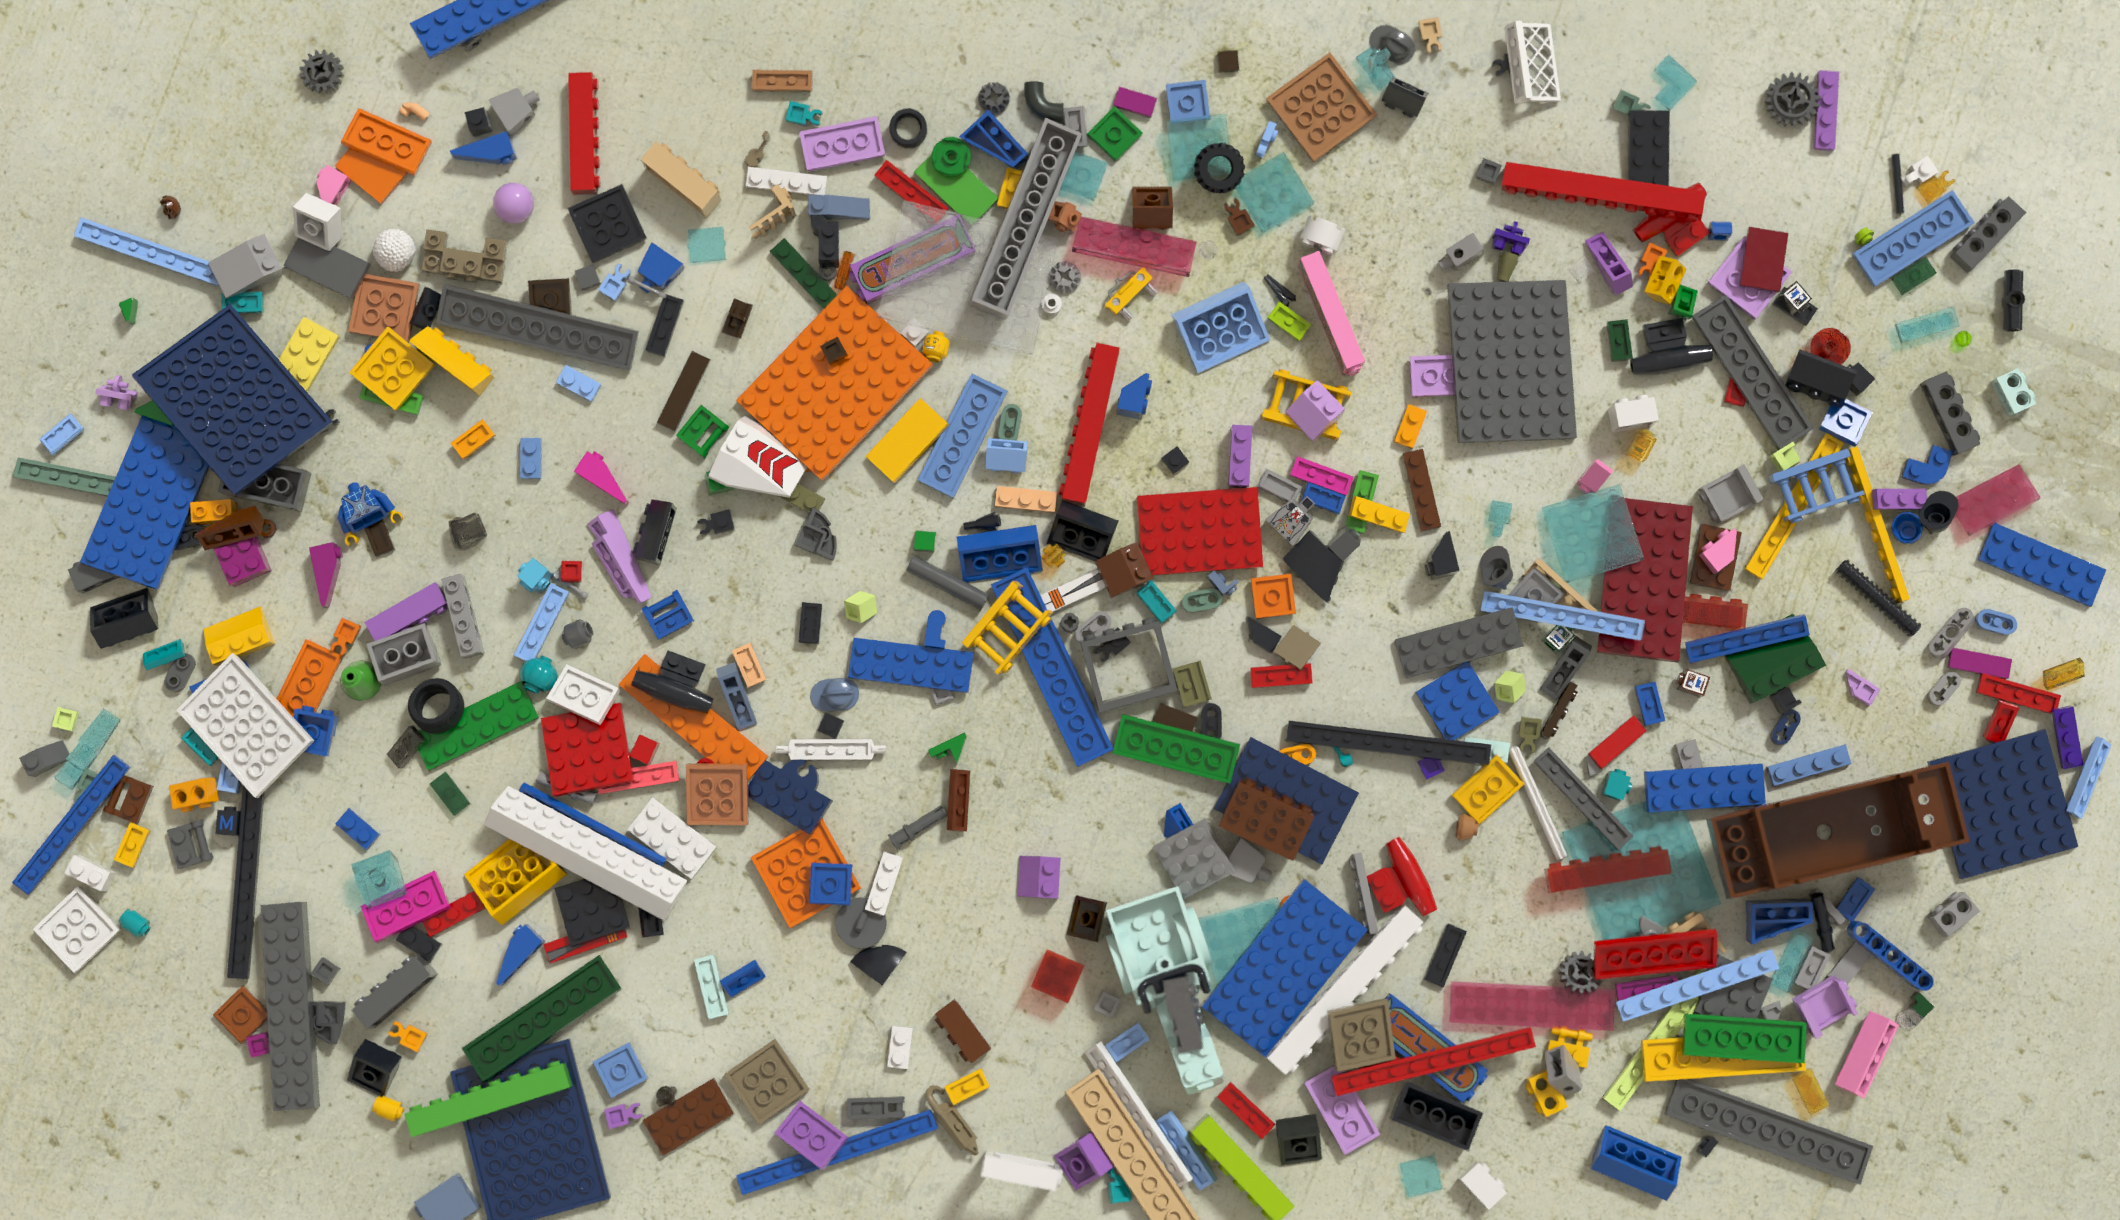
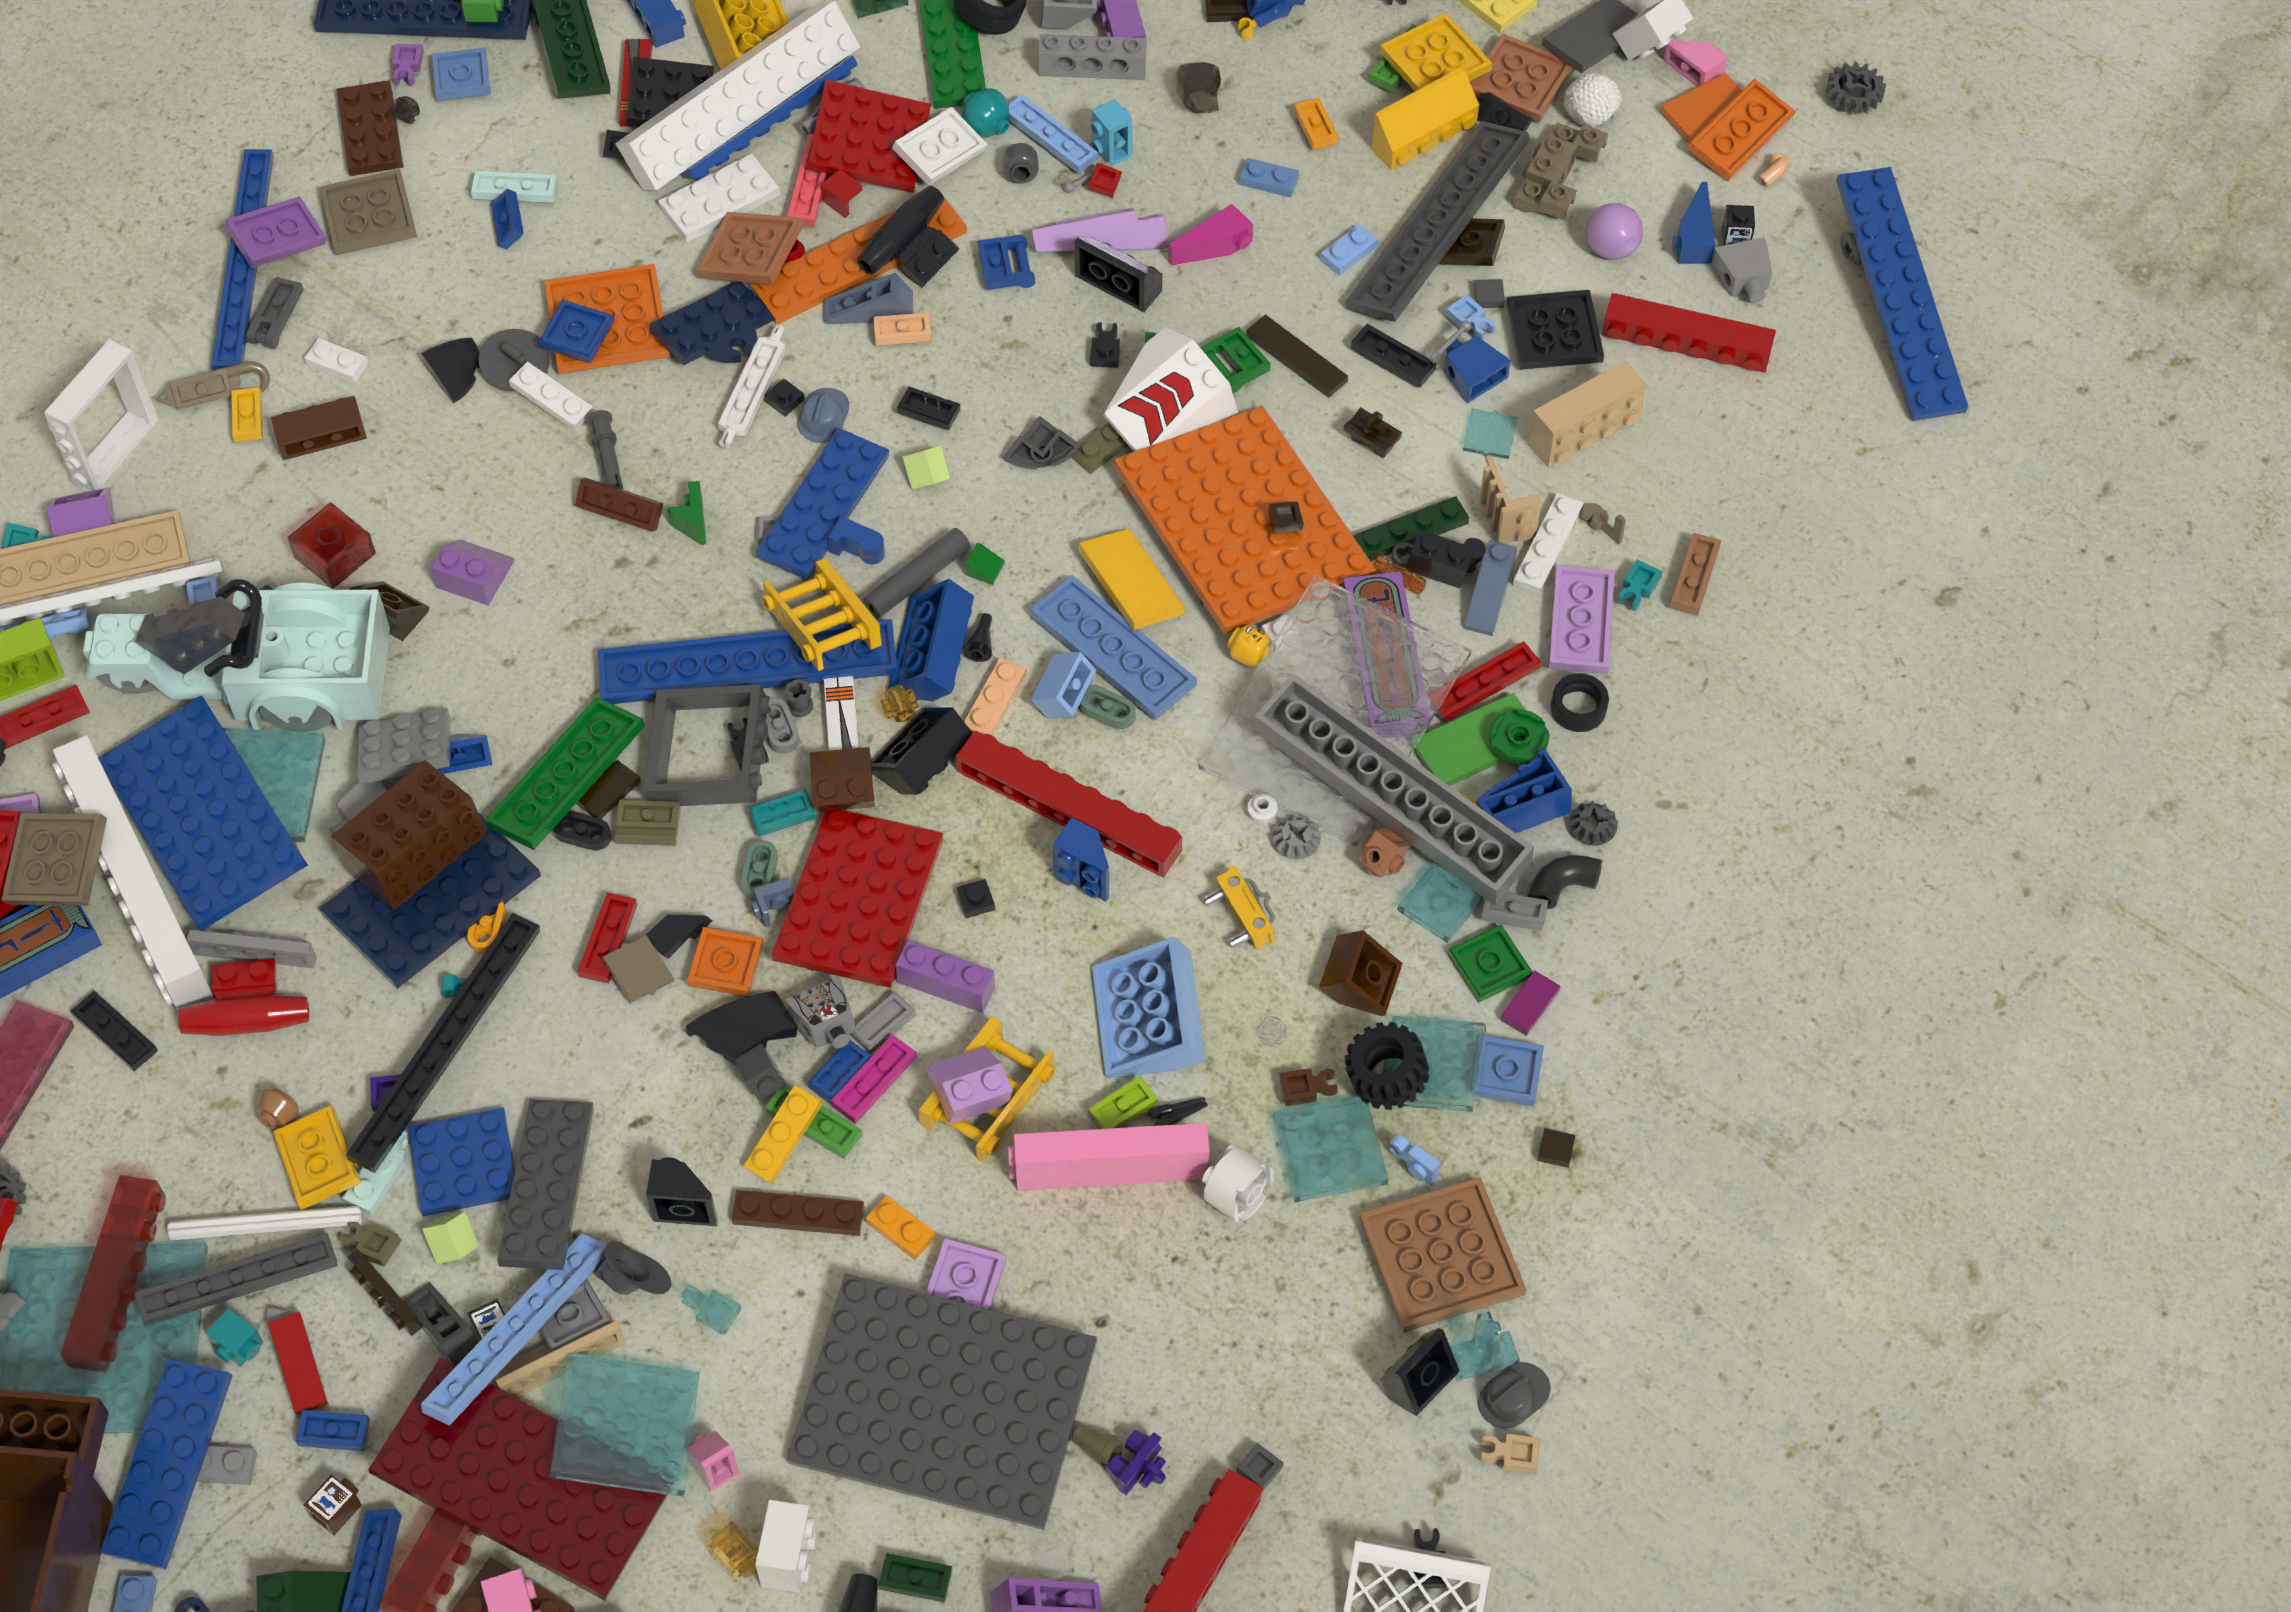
camera: 110 degrees right, 25 degrees down
(1134, 246) = (1307, 931): clear pink plate -> none
(1468, 246) = (1140, 1374): light grey torso -> none

